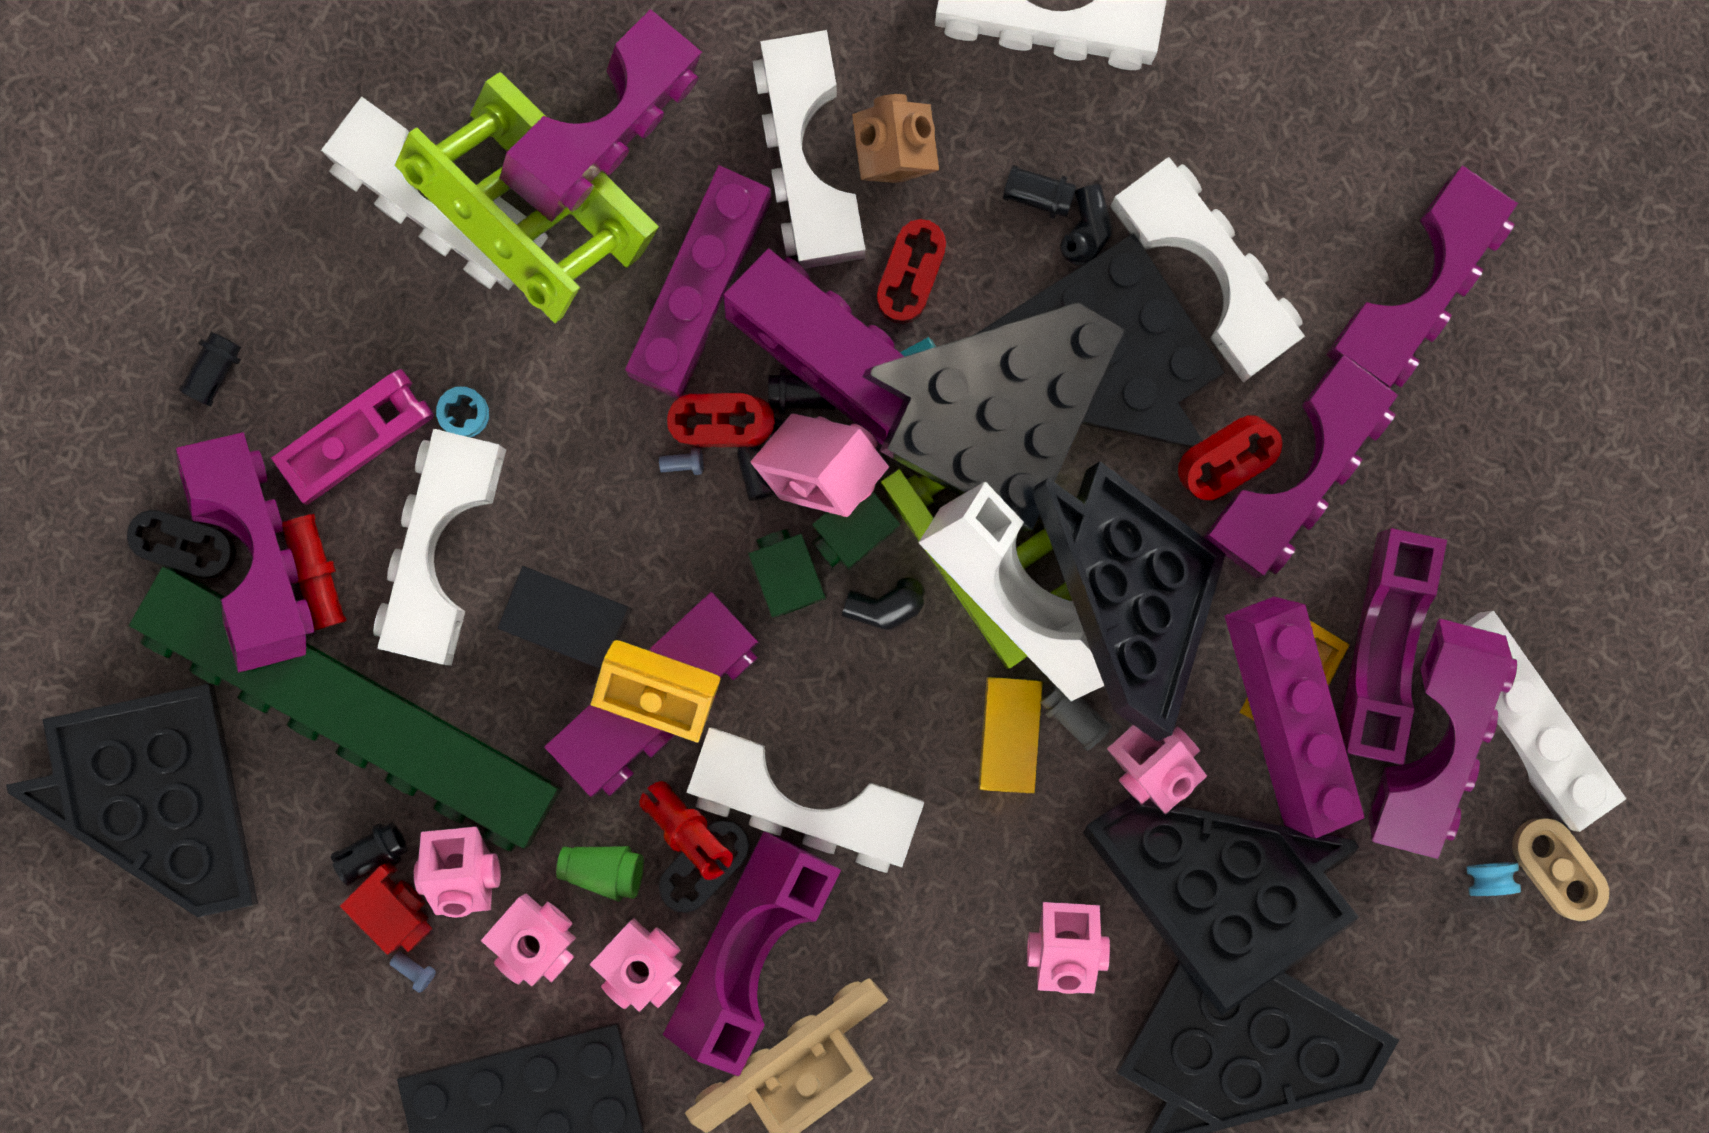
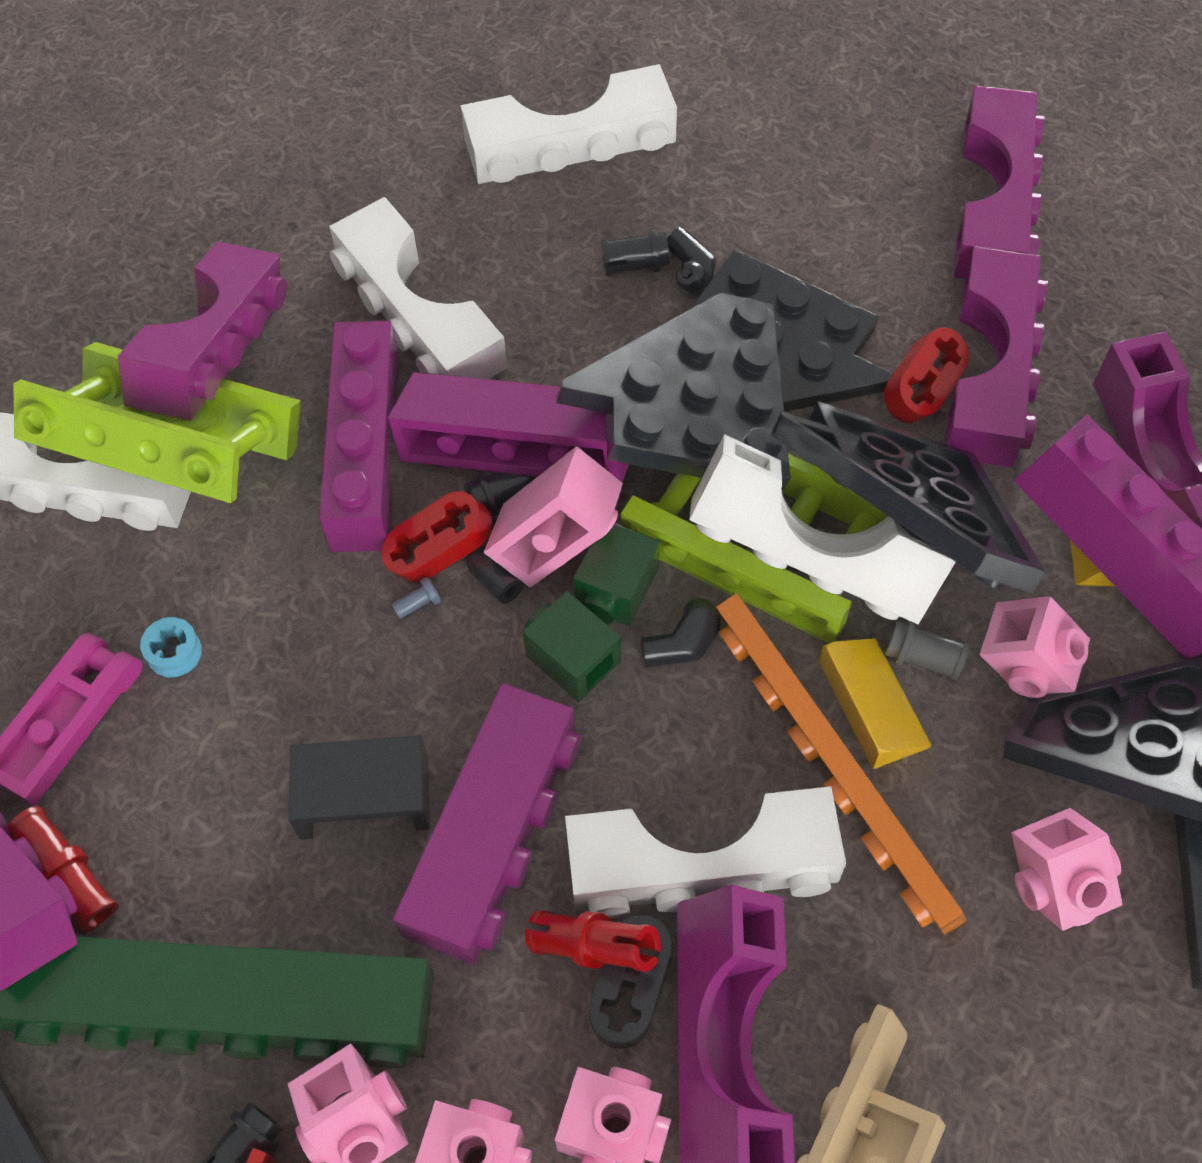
camera: 25 degrees left, 25 degrees down
(454, 478) = (199, 856): white arch -> none
(602, 870) = (518, 1039): bright green cone -> none
(655, 690) = (489, 803): yellow slope -> none
(895, 140) = (488, 257): medium nougat brick -> none
(923, 276) = (542, 355): red beam -> none
(948, 796) = (850, 786): none -> orange plate
(1167, 211) = (761, 220): white arch -> none

